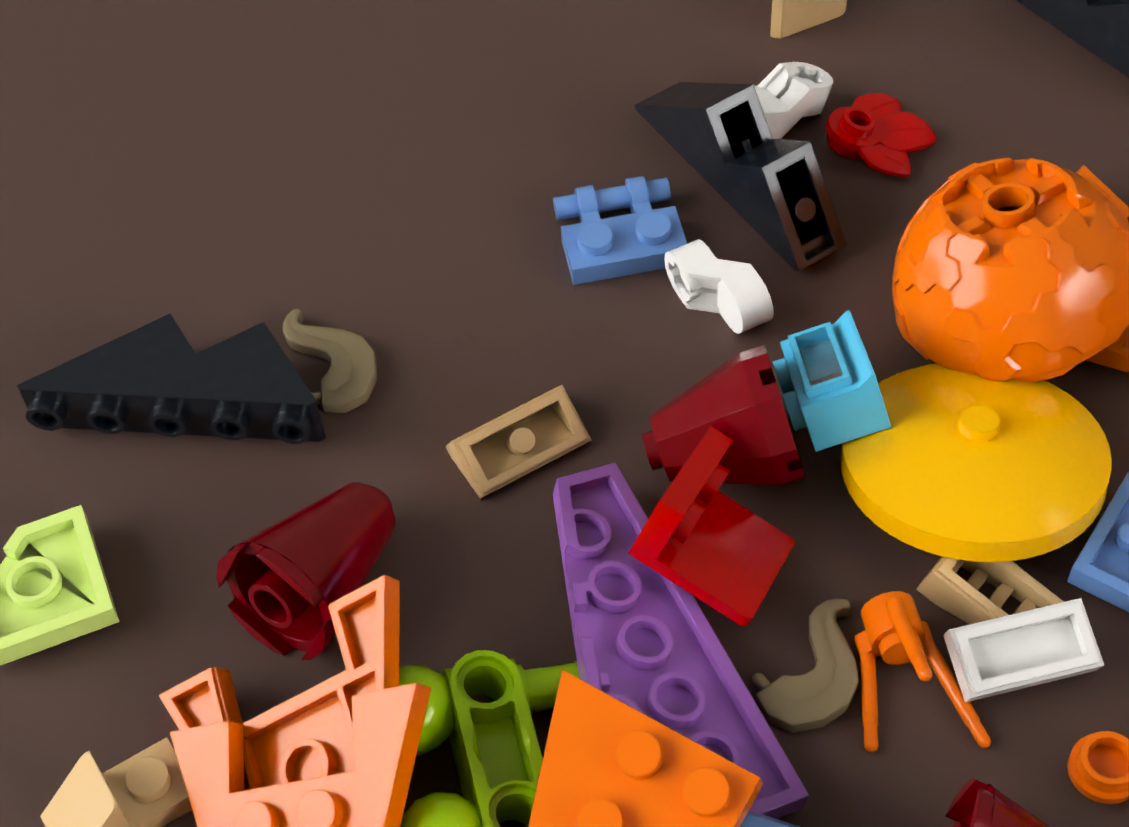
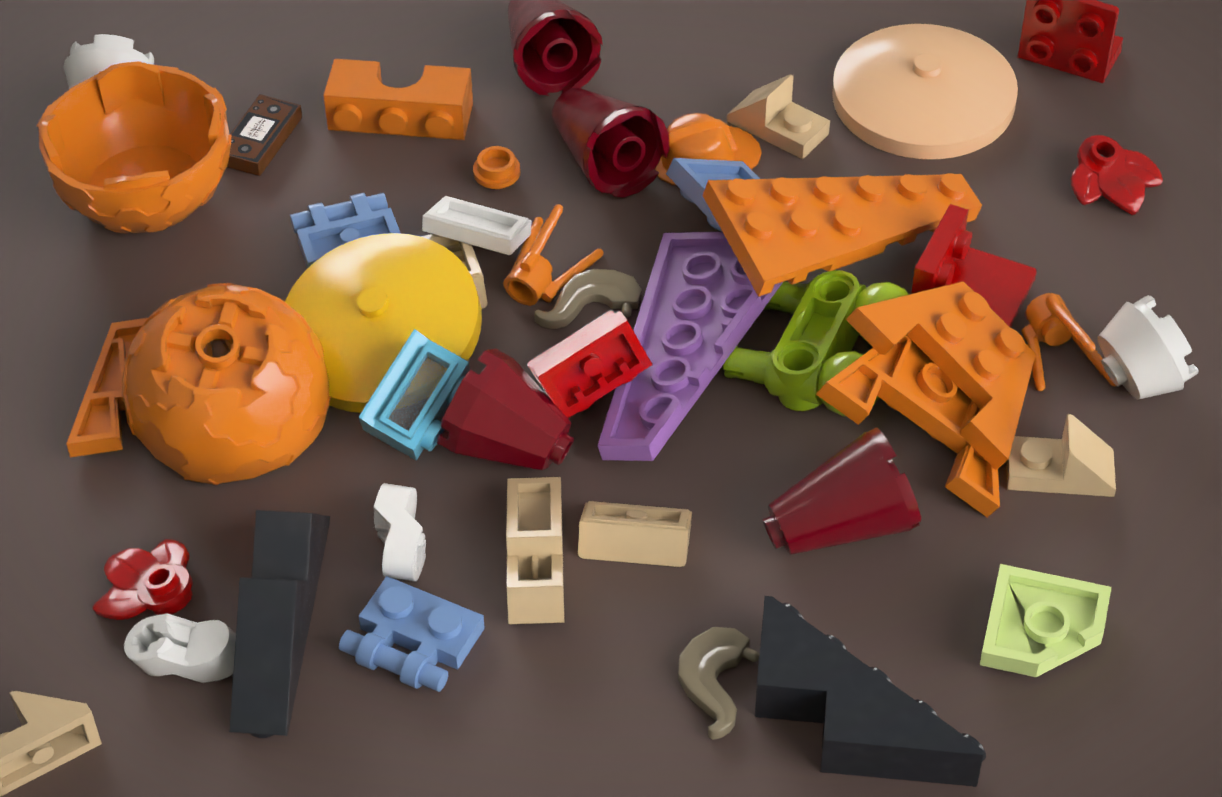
camera: 145 degrees left, 5 degrees down
(587, 350) = (534, 551): none -> tan slope

